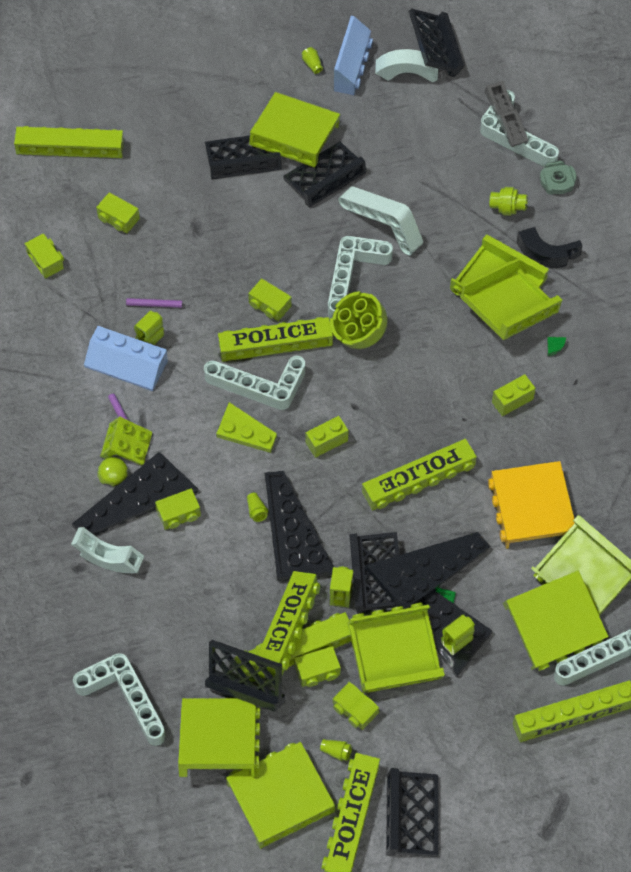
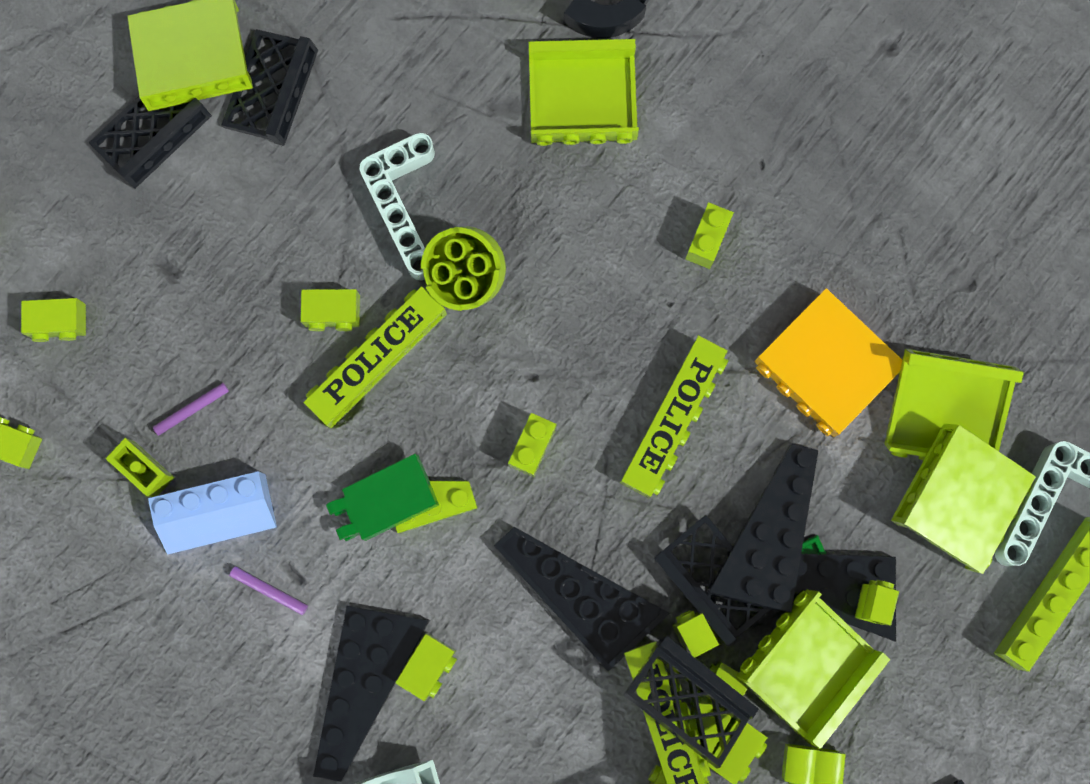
camera: 35 degrees left, 20 degrees up
(105, 309) = (140, 468): none -> lime brick
(112, 471) = (310, 672): lime hair -> none
(126, 441) = (298, 622): lime bracket -> none
(150, 328) = (216, 456): lime brick -> none
(222, 410) = (385, 499): none -> green tile
(256, 507) = (516, 596): lime cone -> none
(257, 383) = (399, 433): light aqua beam -> none
(326, 609) = (703, 680): none -> black fence
(387, 212) = (387, 96): light aqua beam -> none
(508, 300) = (620, 116): lime panel -> none
(554, 345) = (706, 133): green tile -> none

